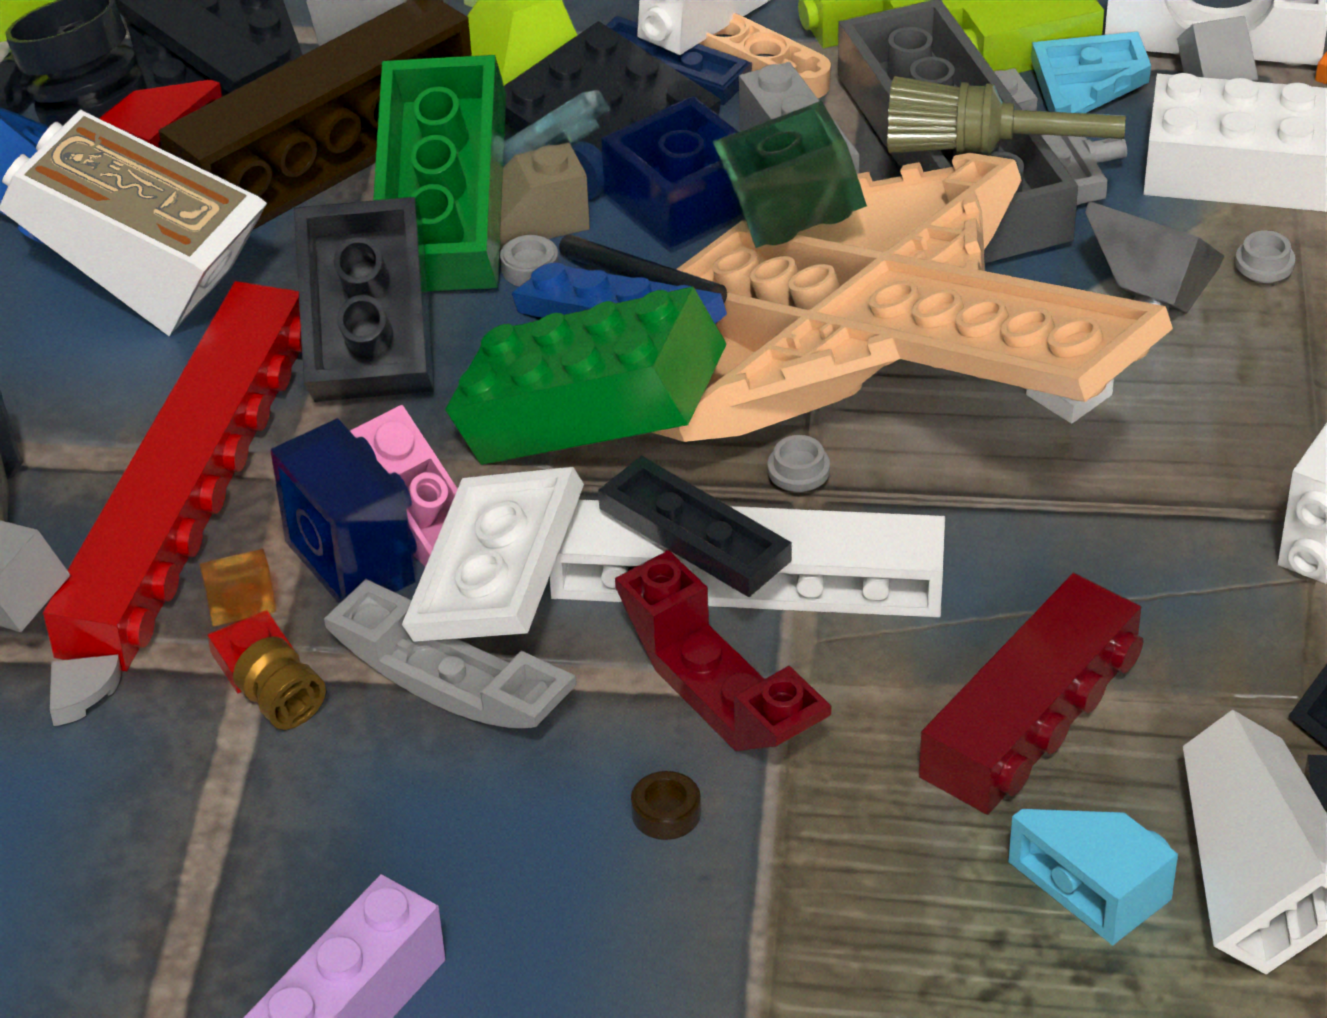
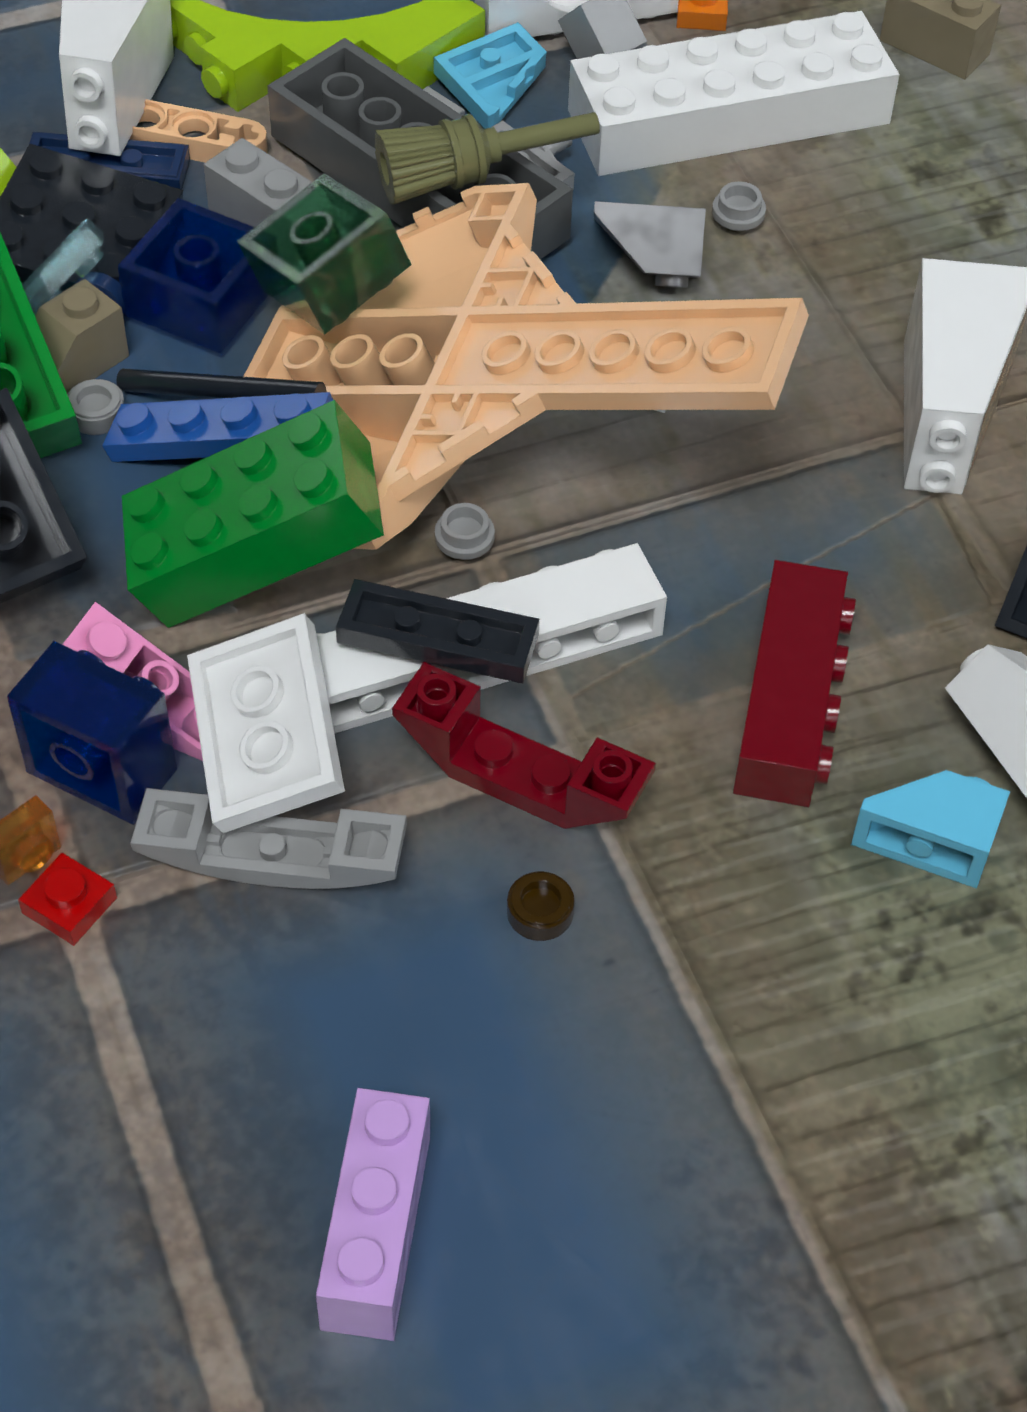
camera: 30 degrees left, 10 degrees up
(280, 684) = (121, 923): pearl gold wheel -> none

